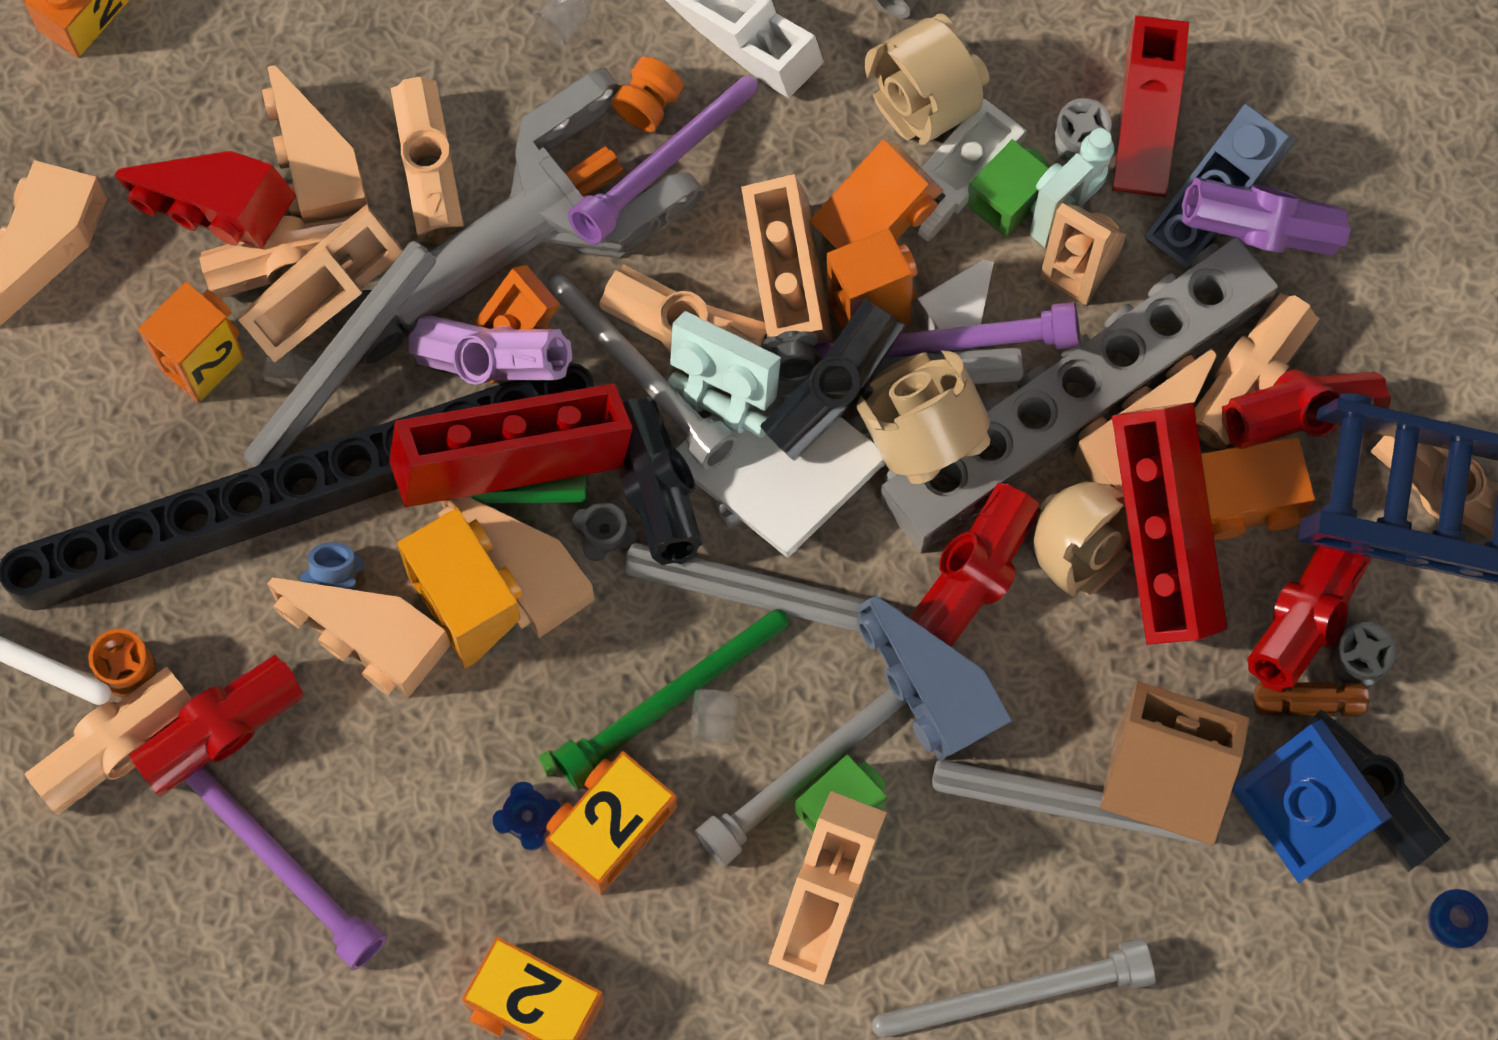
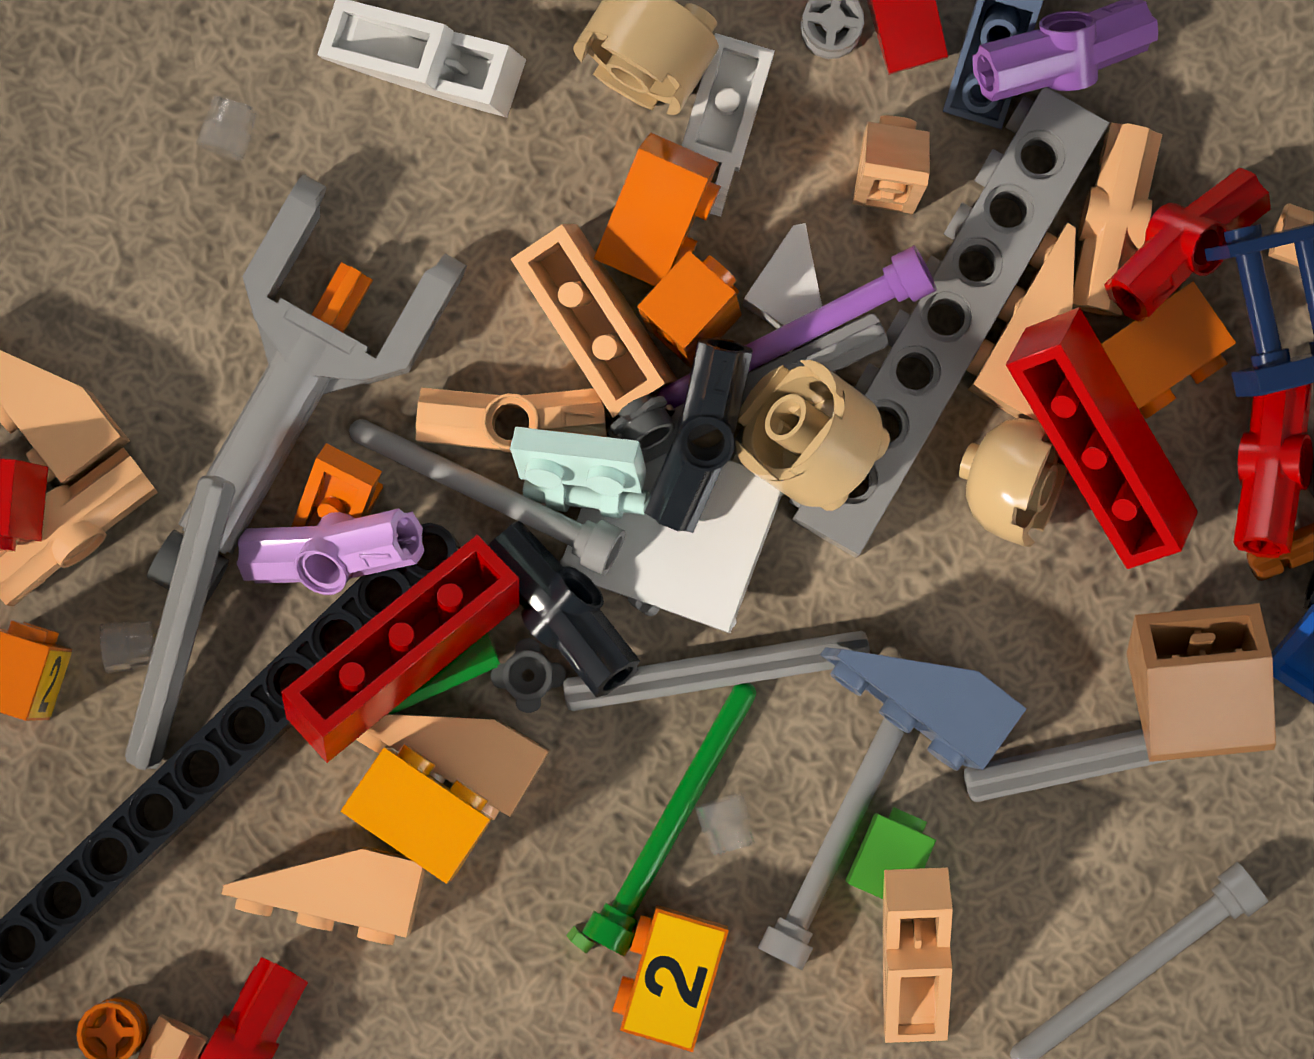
camera: 20 degrees left, 15 degrees up
(321, 283) = (123, 552): light nougat slope -> none
(333, 566) = (267, 829): medium blue plate -> none
(424, 134) = (140, 326): light nougat piece -> none
(510, 819) = (595, 1018): clear blue plate -> none
(597, 215) = (374, 356): medium lavender piece -> none
(647, 94) = (358, 181): orange wheel -> none
(977, 564) = (922, 561): red piece -> none
(1007, 187) = (784, 121): bright green brick -> none
(1071, 183) = (844, 114): light aqua plate -> none

